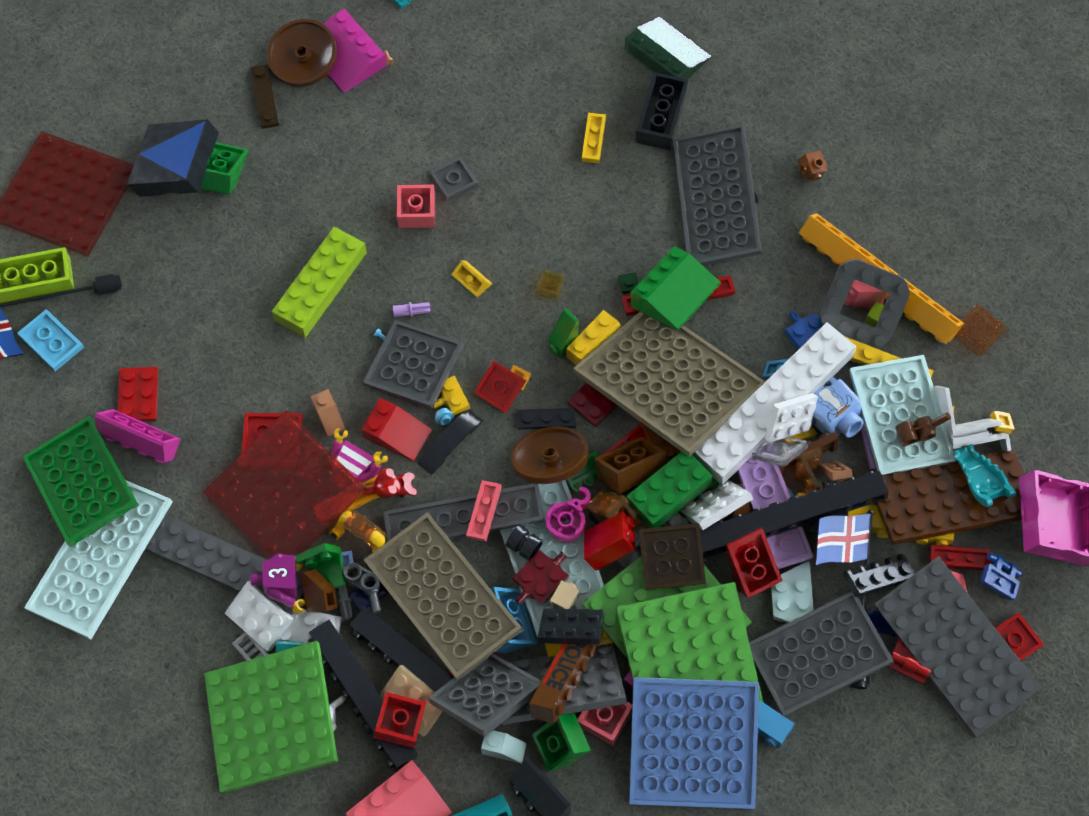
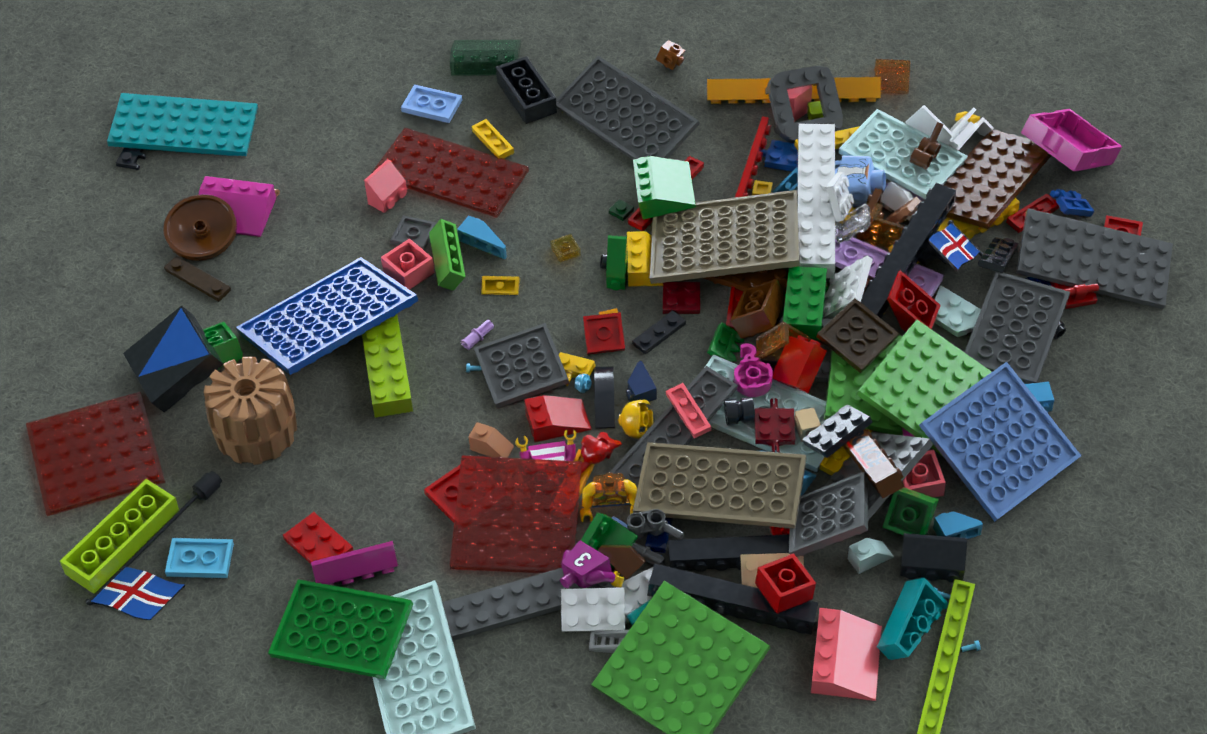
camera: 40 degrees left, 15 degrees down
(178, 248) = (251, 410): none -> medium nougat wheel
(312, 206) = (326, 315): none -> blue plate
(448, 480) = (634, 416): none -> yellow cylinder
(453, 220) = (447, 254): none -> bright green brick
(466, 121) = (385, 187): none -> coral slope
(481, 455) = (641, 385): none -> dark blue slope
(496, 220) = (479, 235): none -> dark azure slope
(534, 143) = (454, 172): none -> clear red plate
(550, 455) = (692, 346): reddish brown dish -> none
(580, 66) = (431, 103): none -> light blue plate
(588, 782) = (957, 525): none -> dark azure slope
(757, 354) = (762, 187): none -> yellow plate
(777, 319) = (754, 157): none -> red plate
(856, 454) = (895, 197): none -> white slope
(983, 478) = (1001, 149): teal animal -> none

